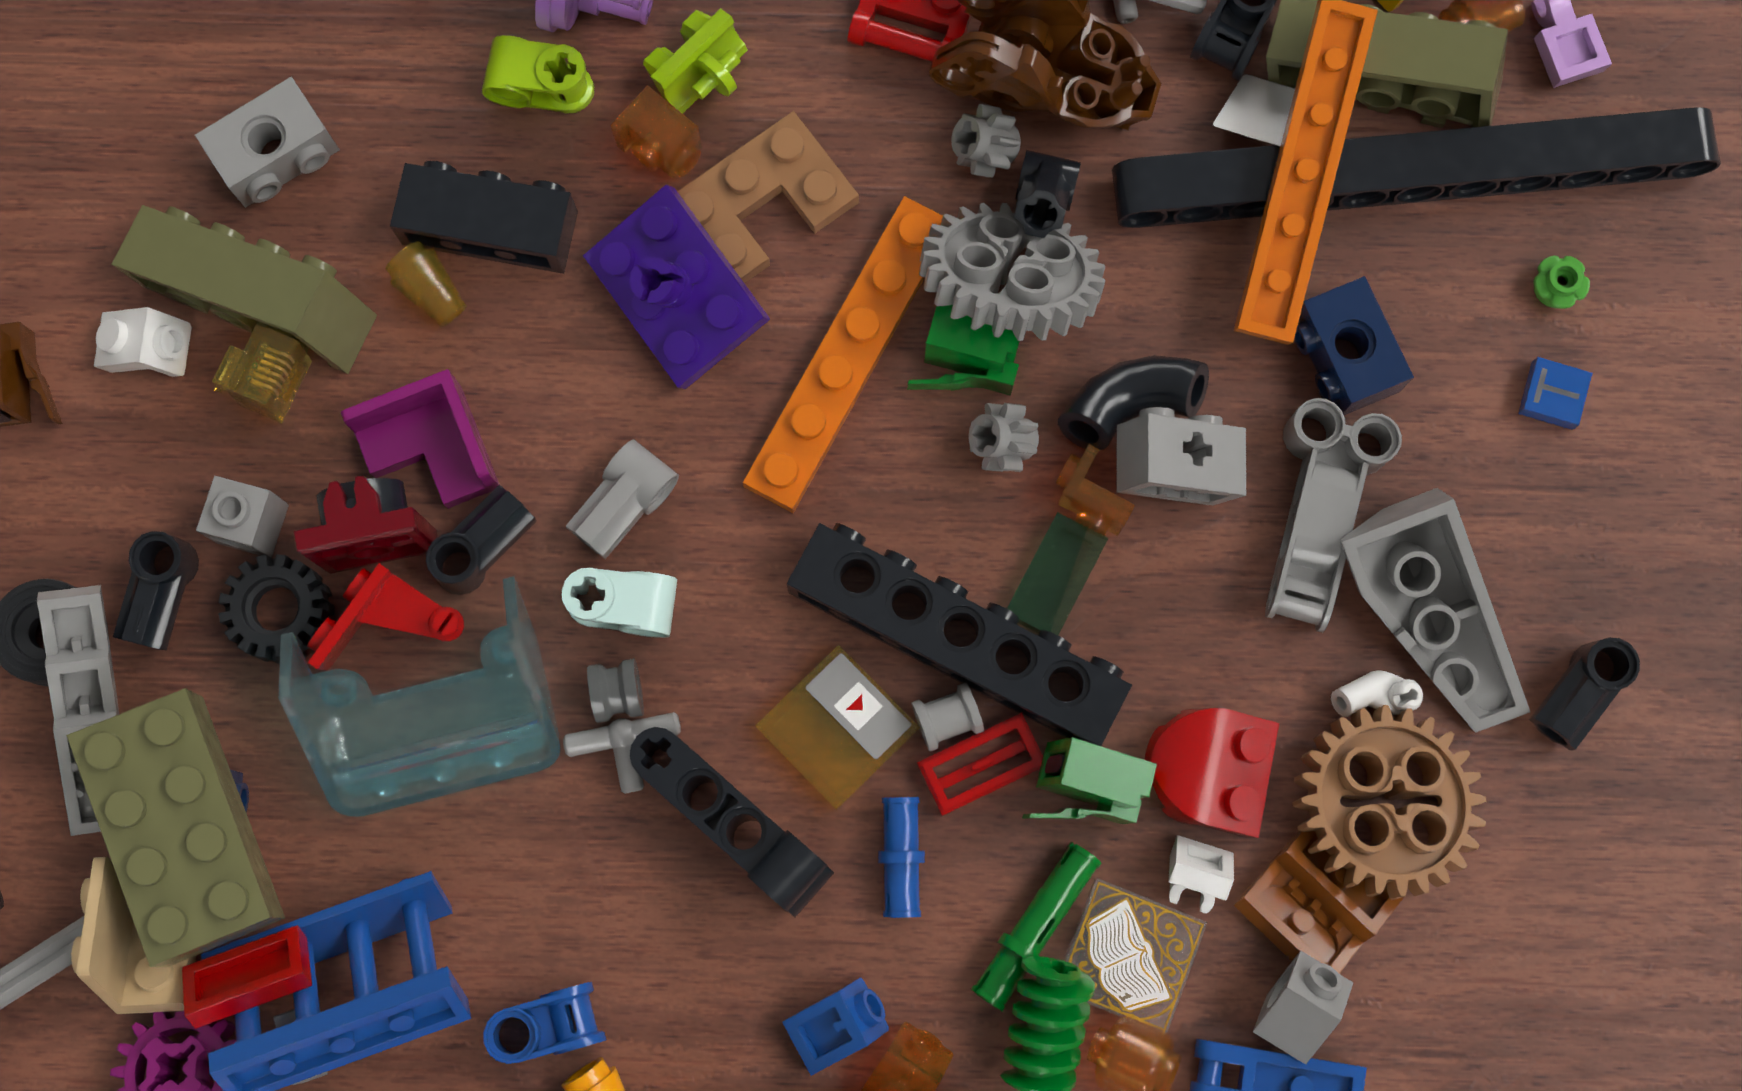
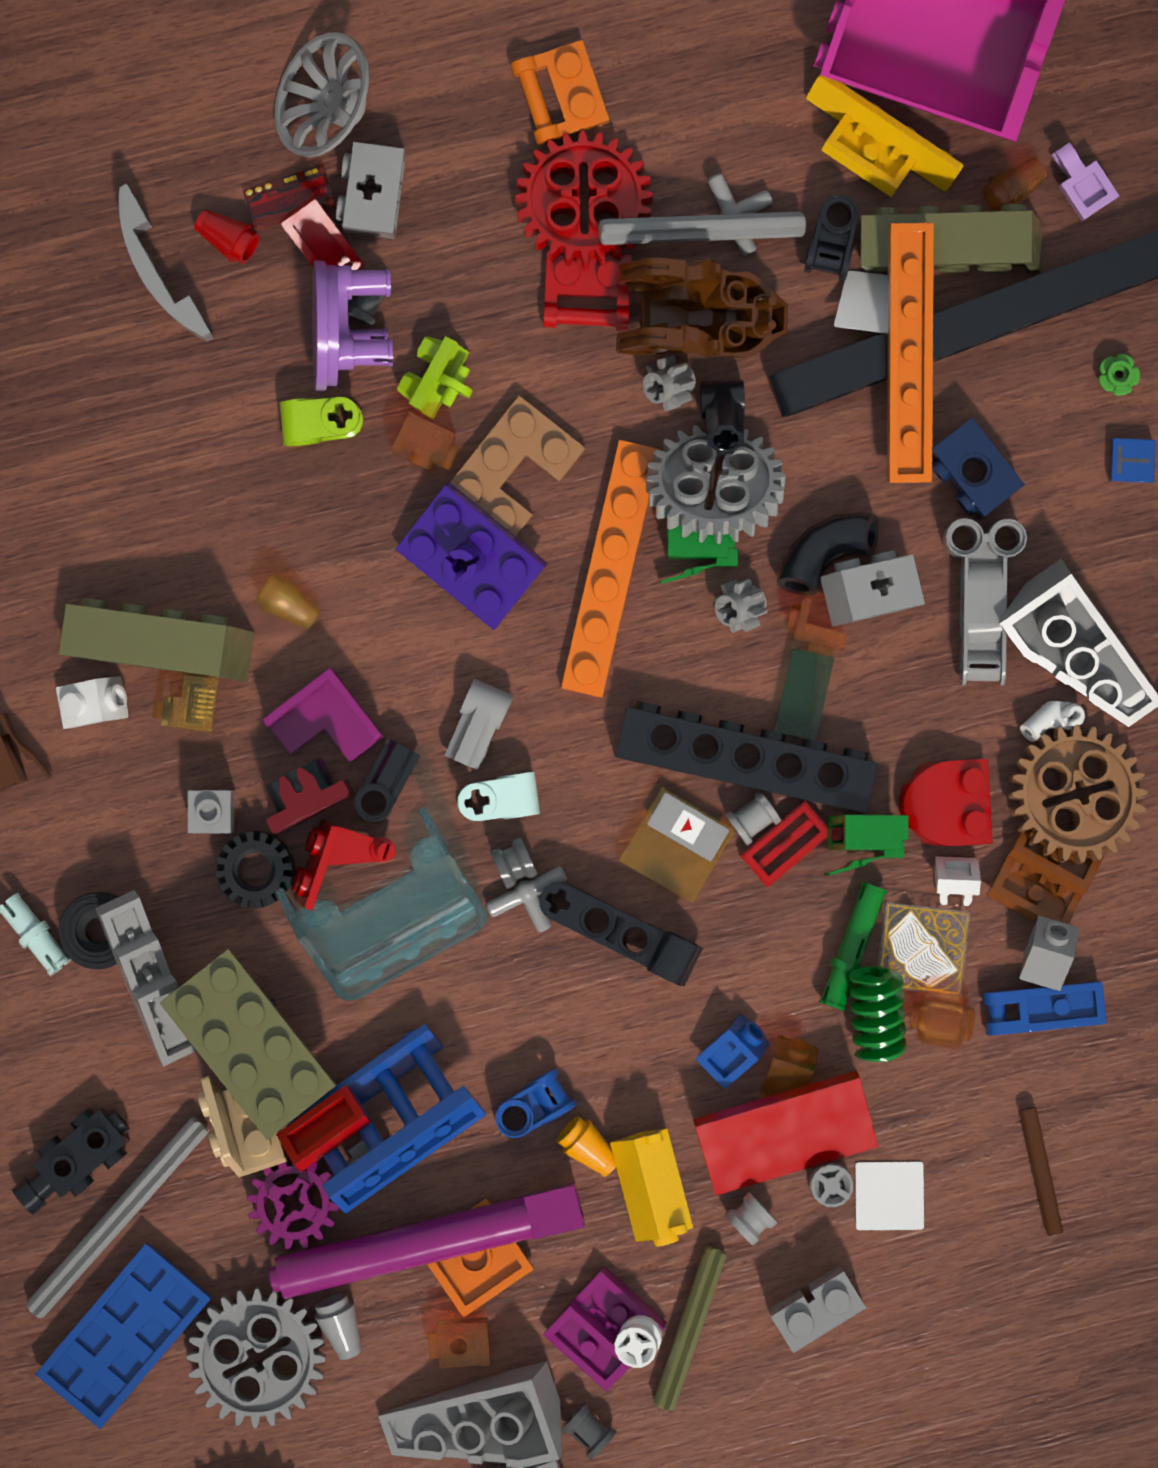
camera: 20 degrees left, 10 degrees up
(152, 598) = (165, 885): black piece -> none
(238, 139) = (113, 535): light grey brick -> none
(485, 216) = (315, 539): black brick -> none
(901, 857) = (746, 924): blue pin -> none

